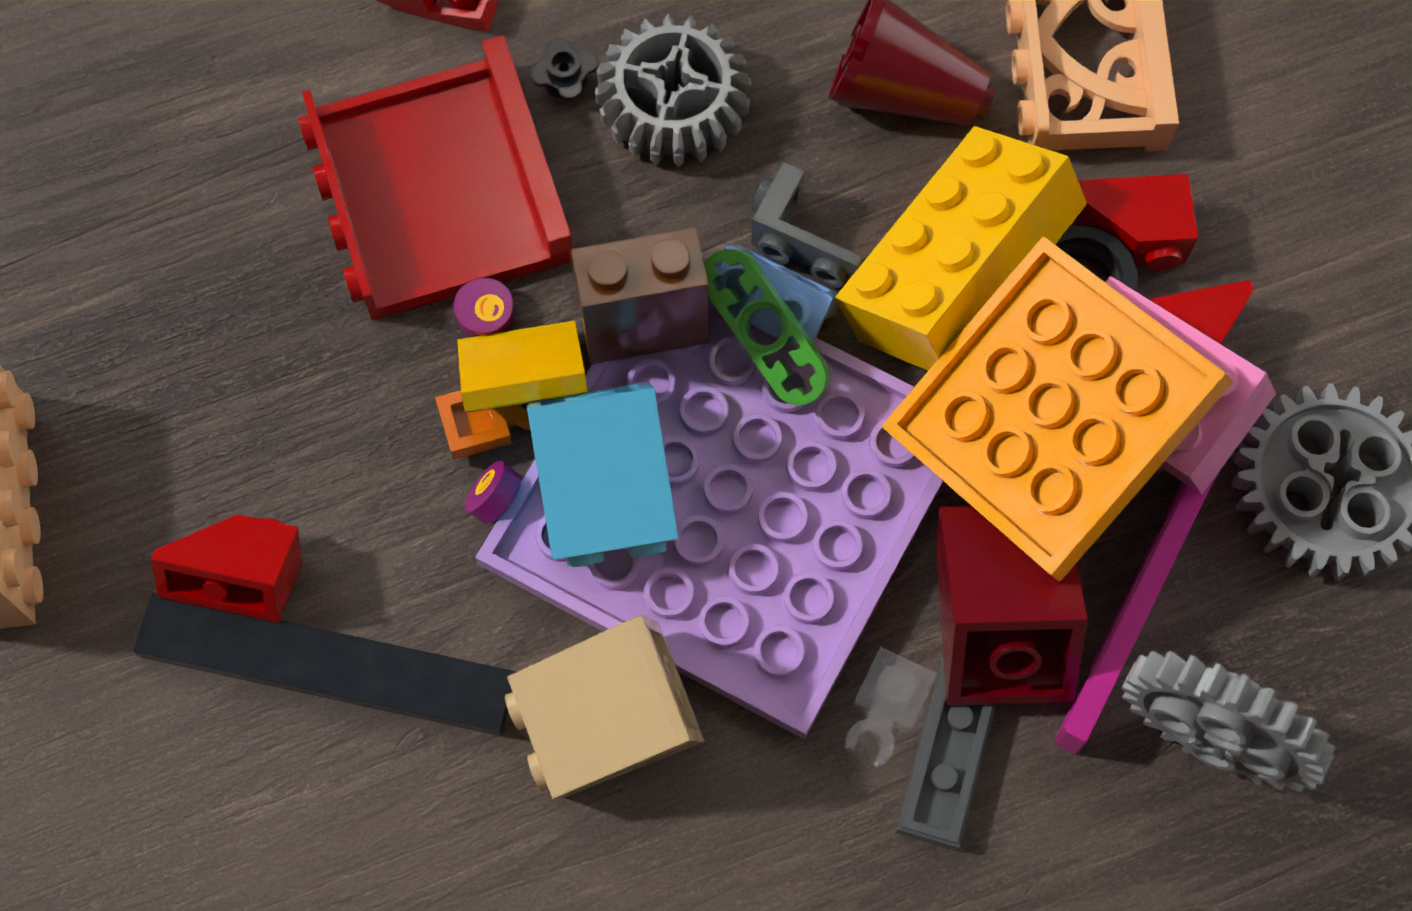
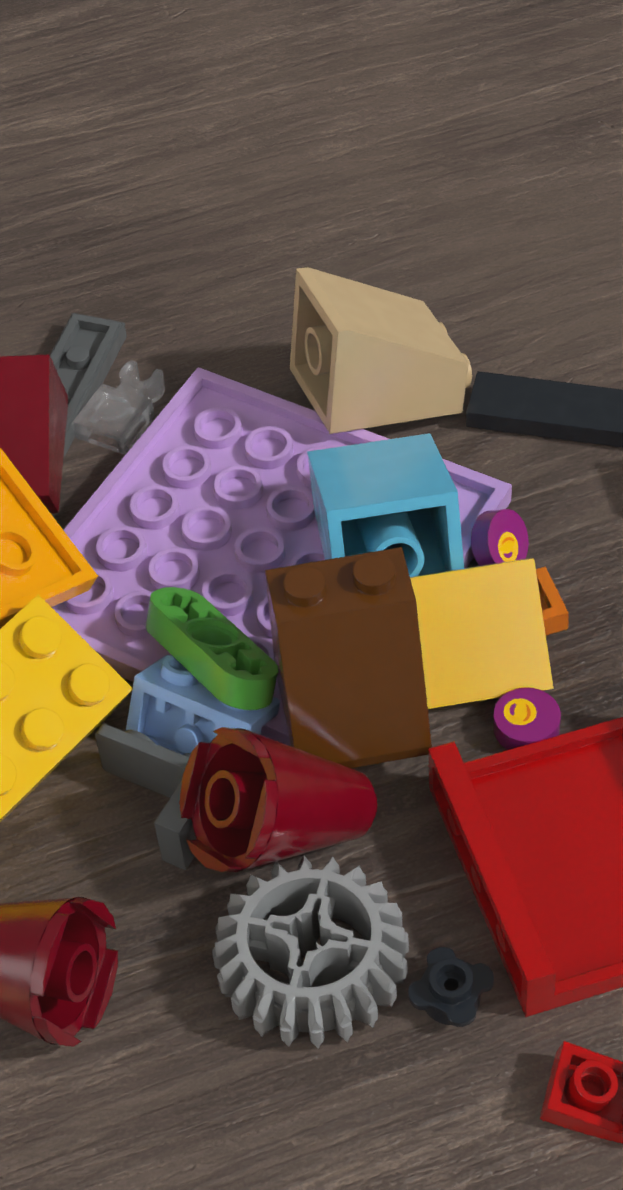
camera: 175 degrees left, 20 degrees down
(701, 171) = (268, 801): none -> dark red cone

